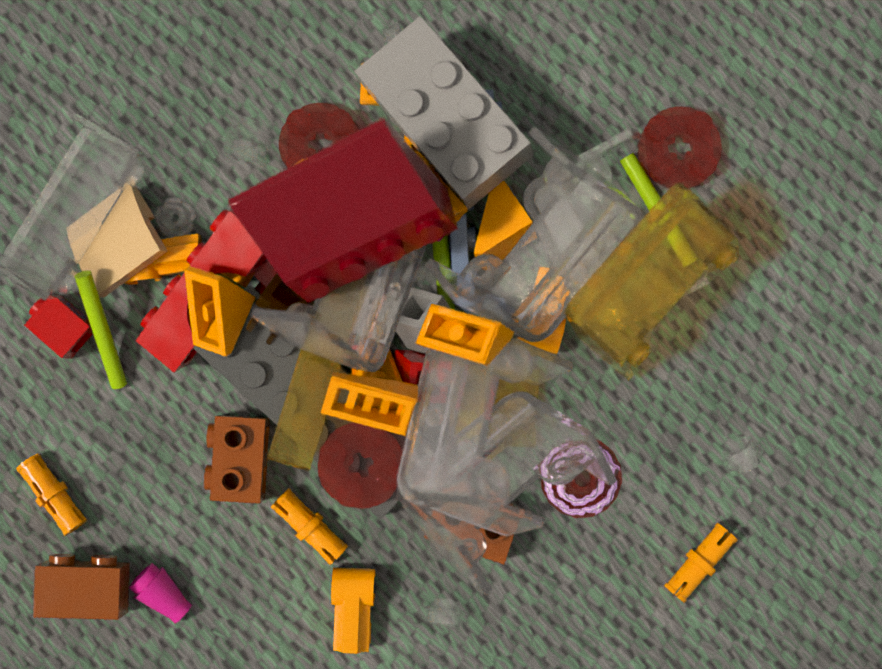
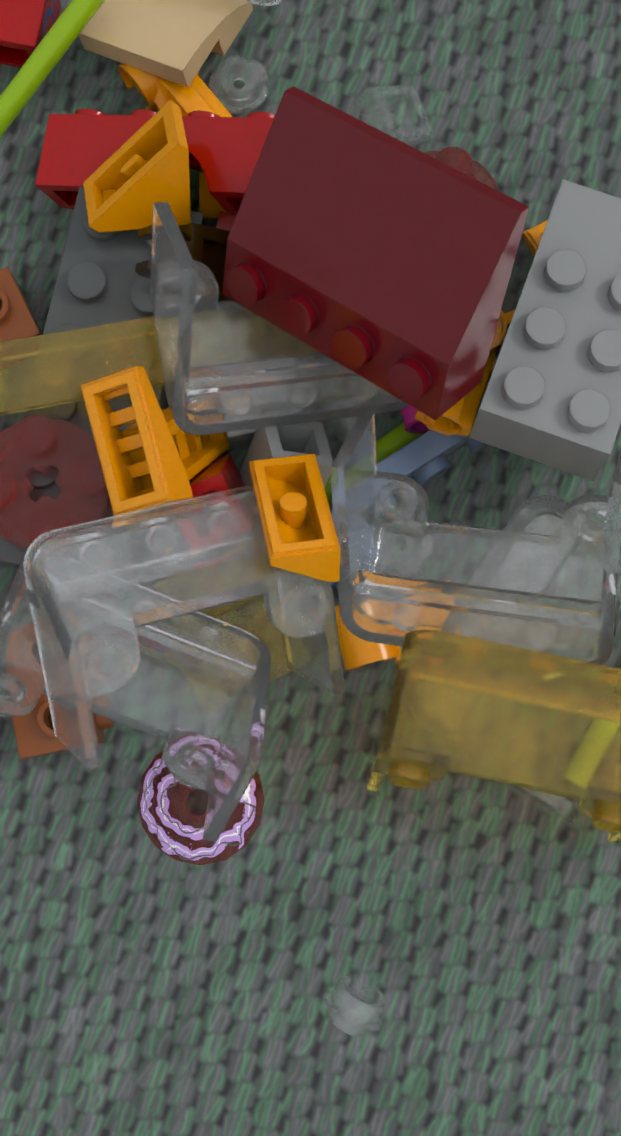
camera: 55 degrees right, 5 degrees down
(502, 223) = (477, 491): light orange slope -> none
(700, 562) = (174, 1032): light orange pin -> none

